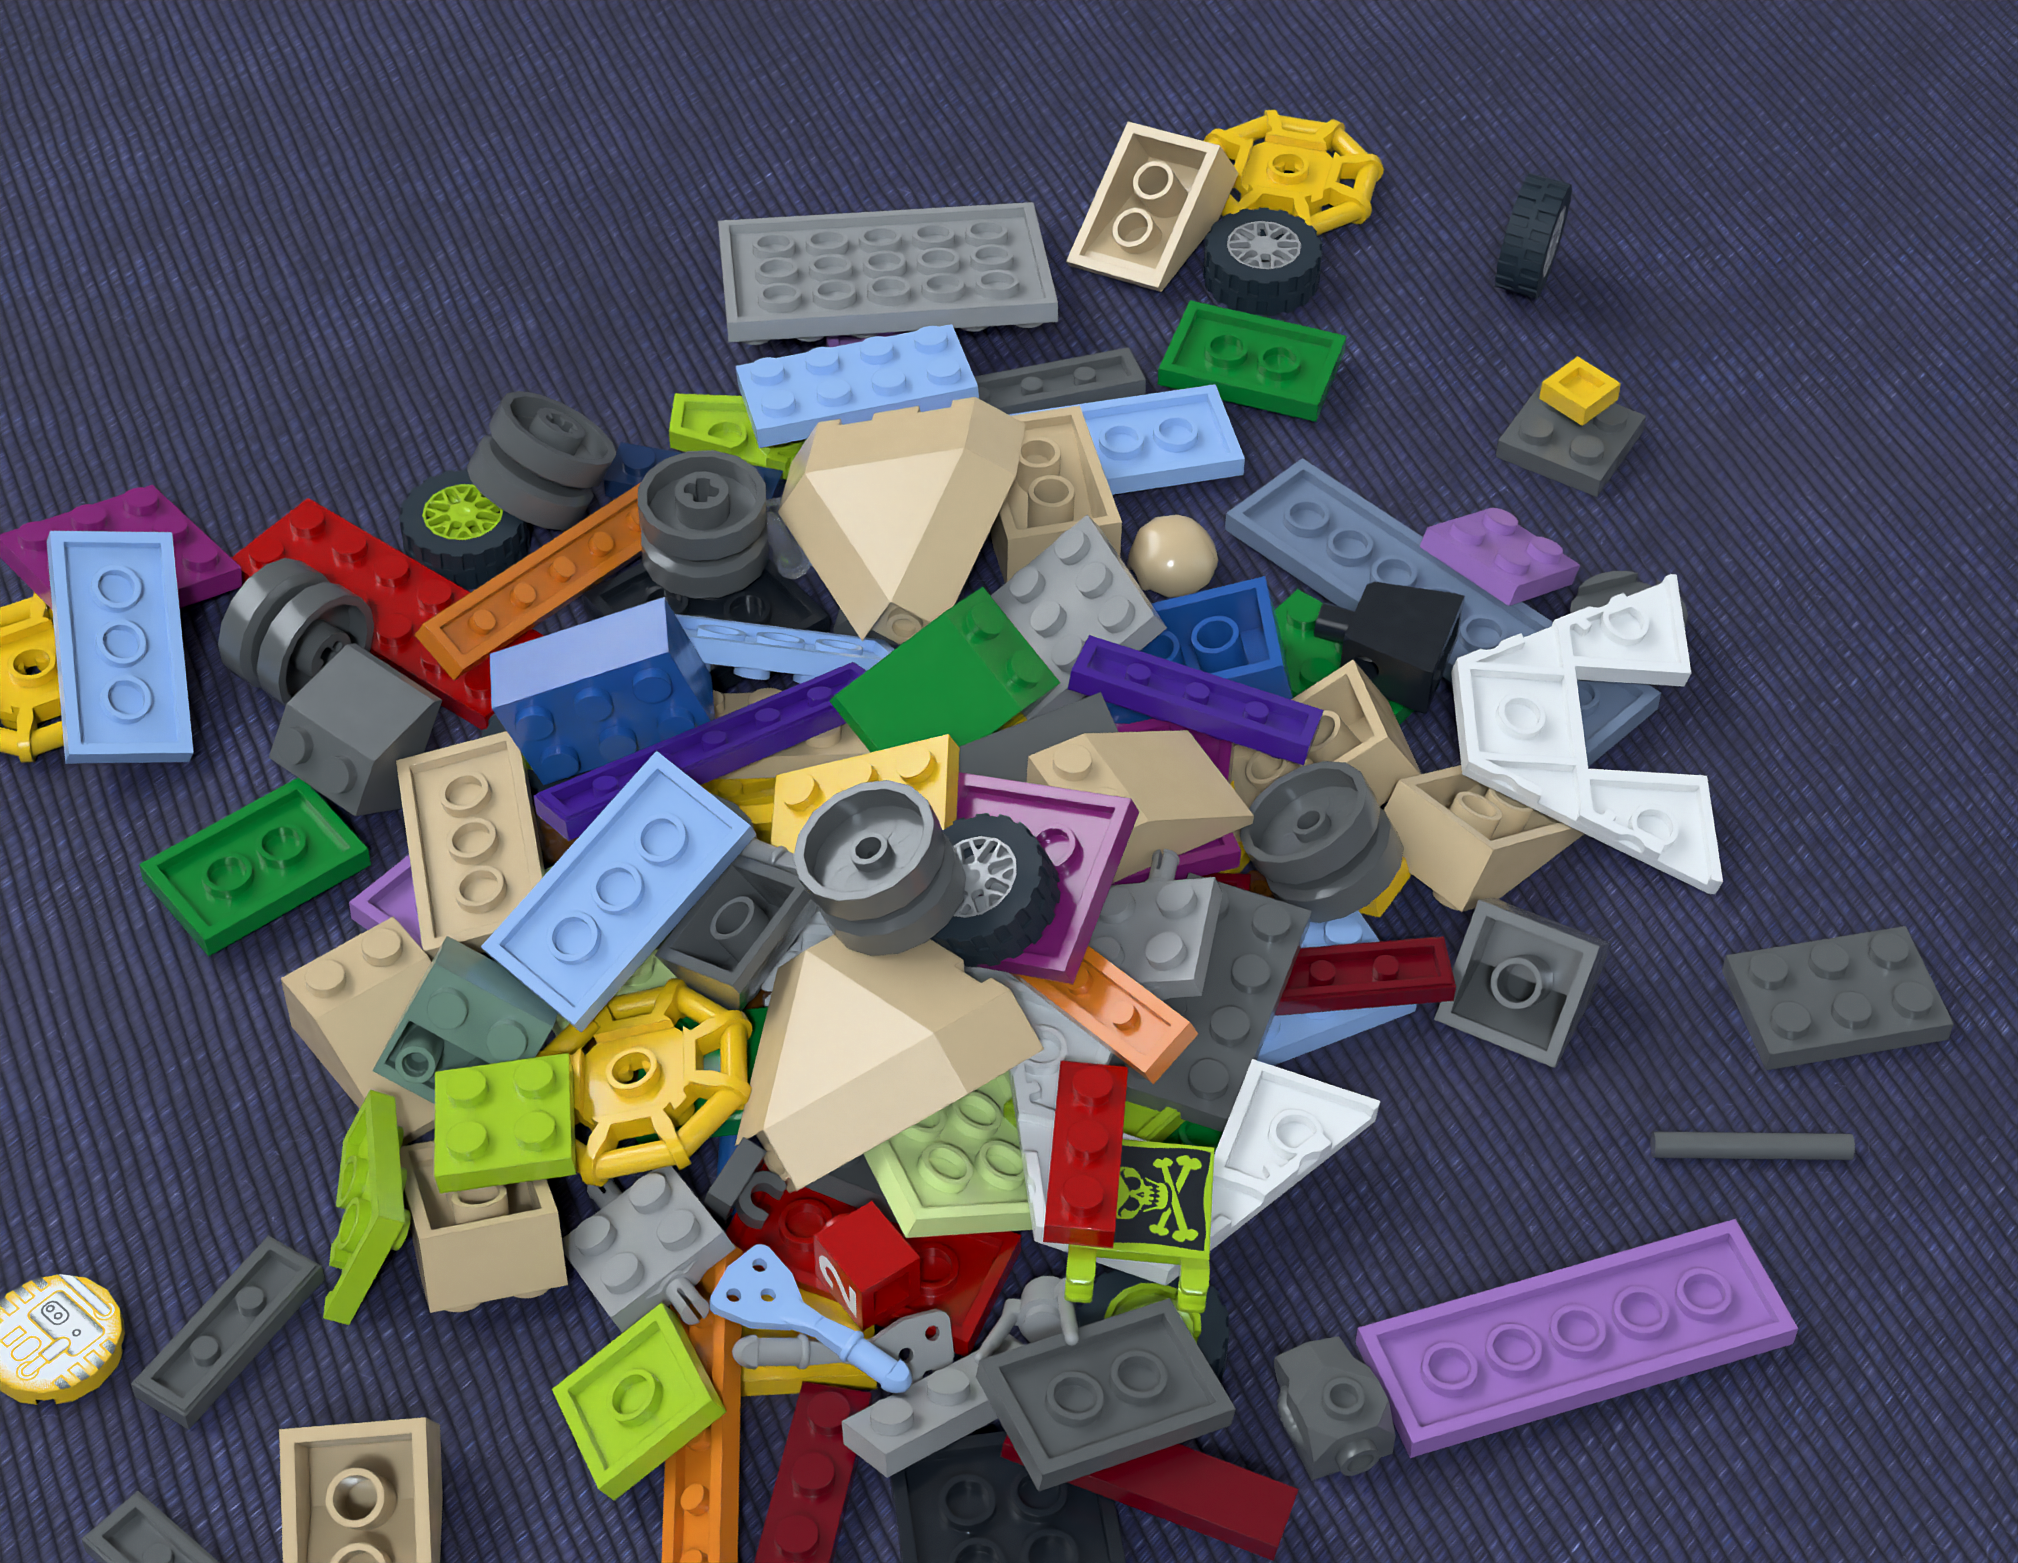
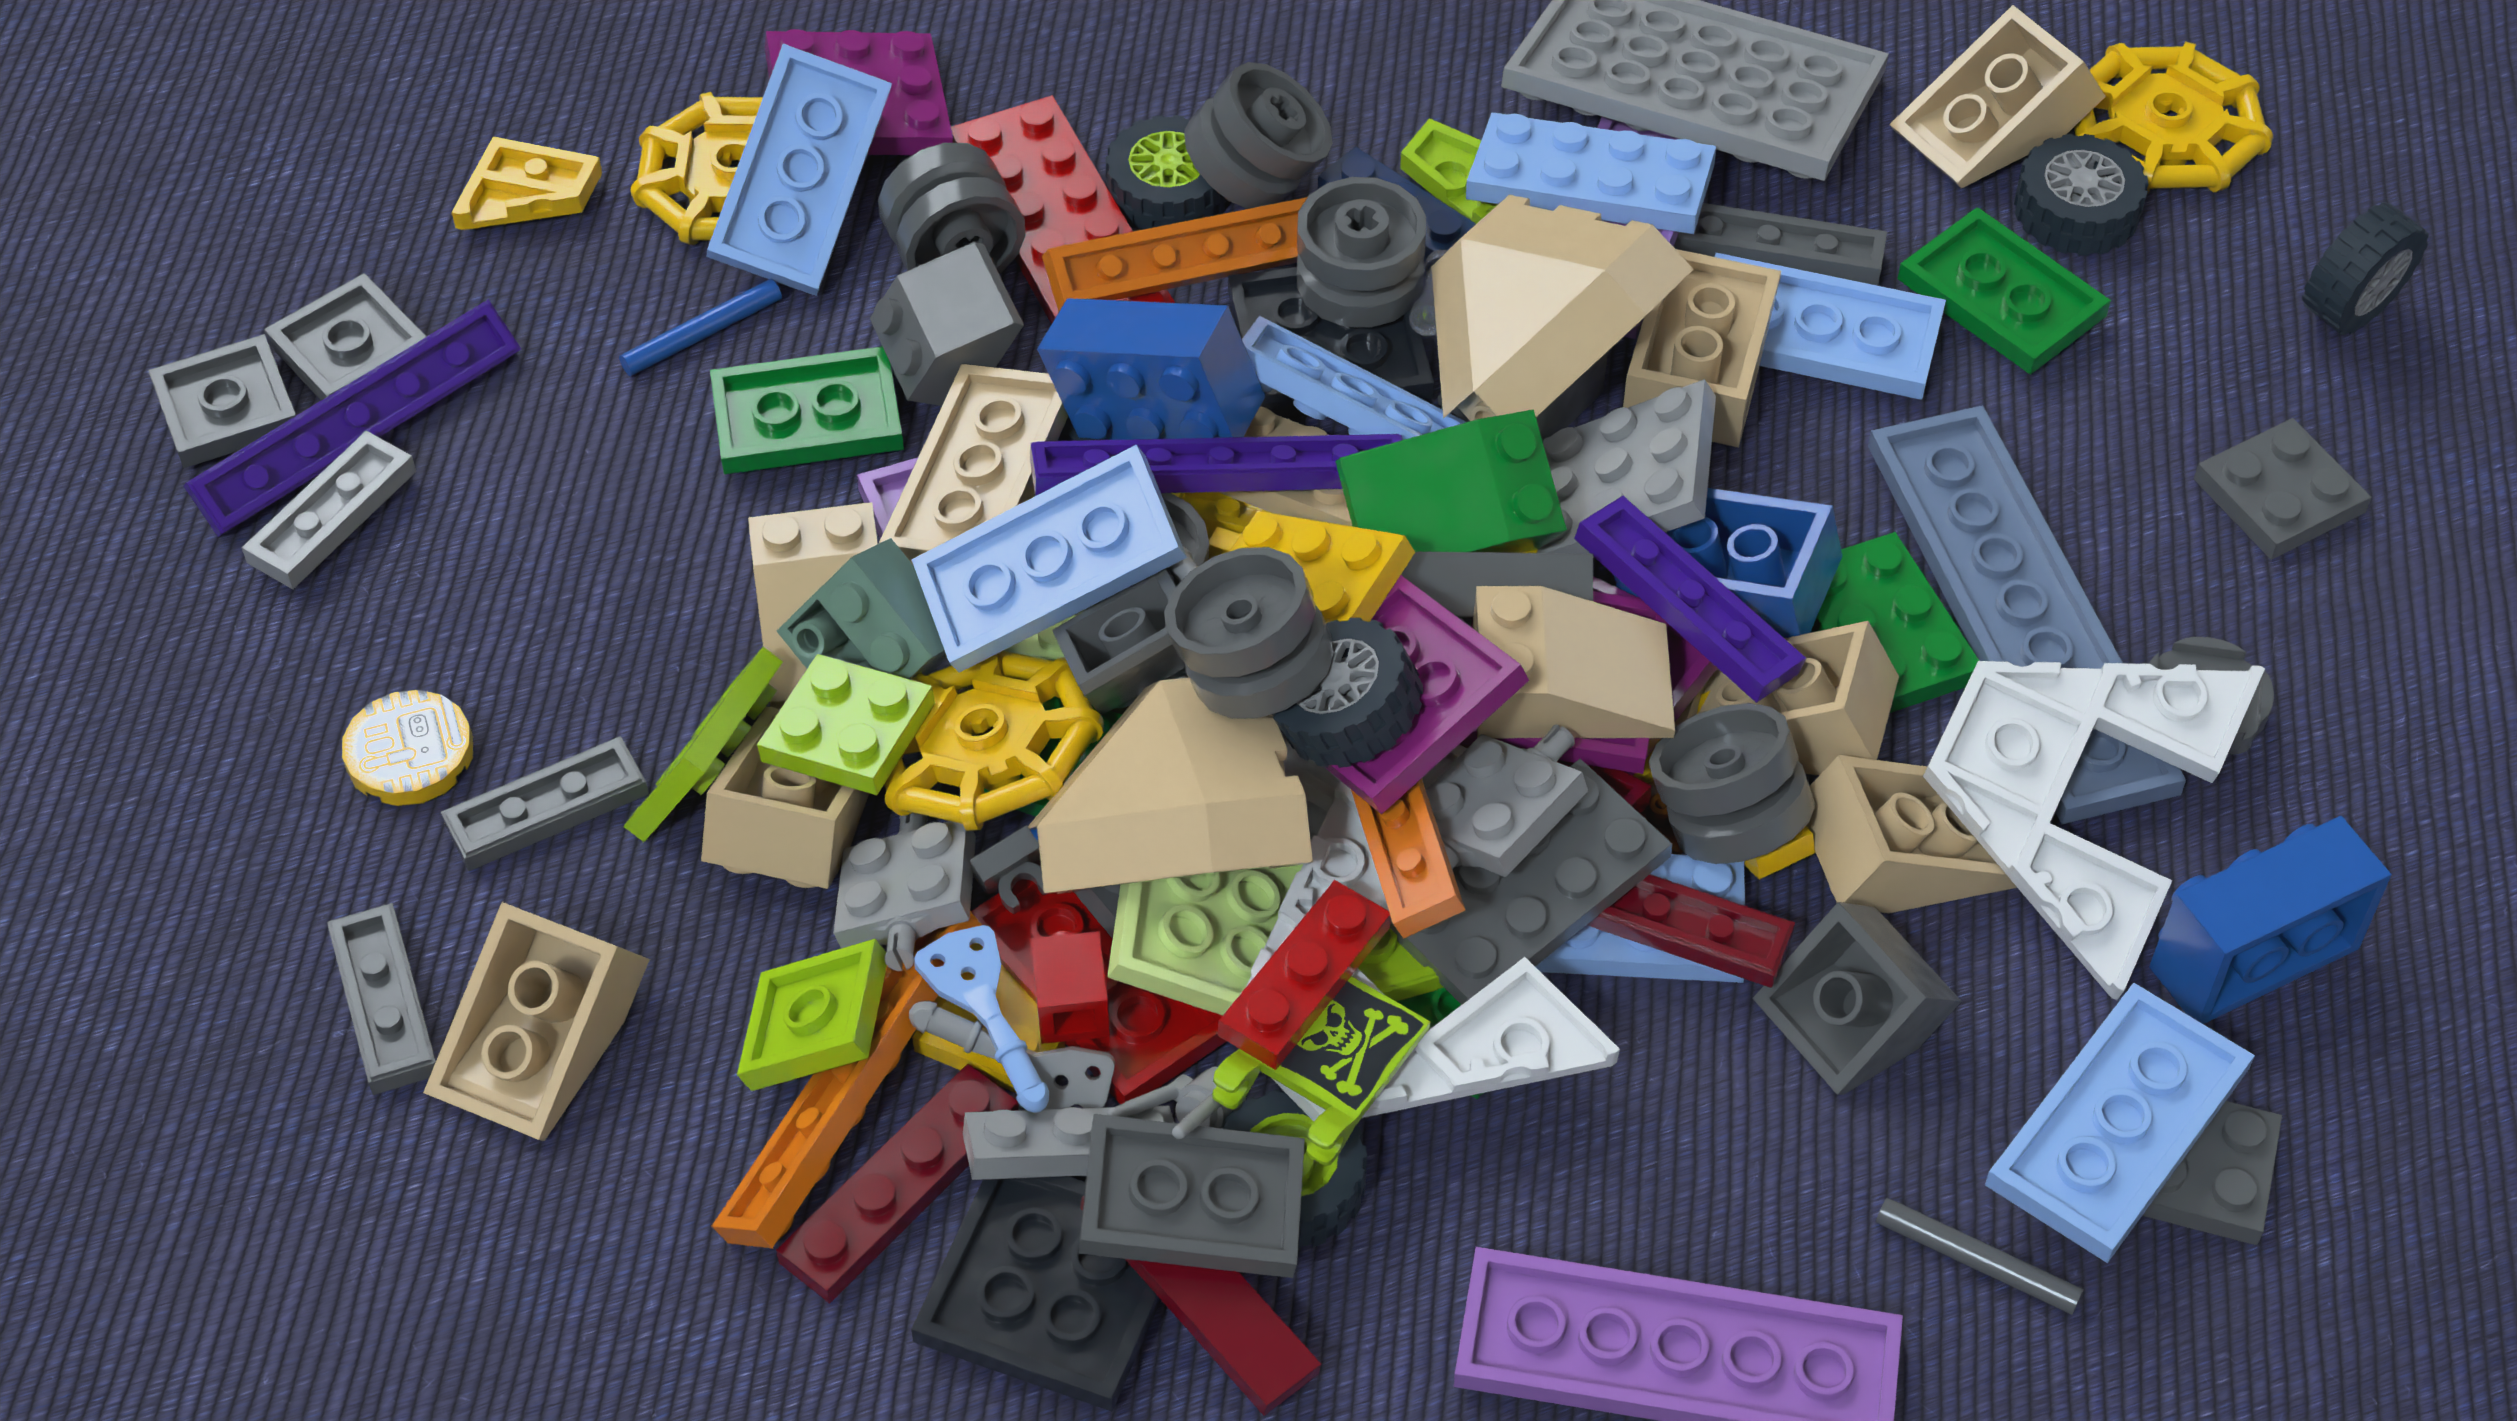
camera: 30 degrees right, 5 degrees up
(94, 833) = (700, 327): none -> blue bar
(1173, 556) = (1796, 453): tan hair -> none
(1333, 1409) = (1408, 1308): dark grey hand -> none
(1397, 638) = (1942, 620): black torso -> none
(1500, 555) = (2116, 579): medium lavender plate -> none
(1580, 390) = (2304, 445): yellow plate -> none
(1802, 773) = (2268, 919): none -> blue brick
(1802, 983) = (2119, 1122): none -> light blue plate

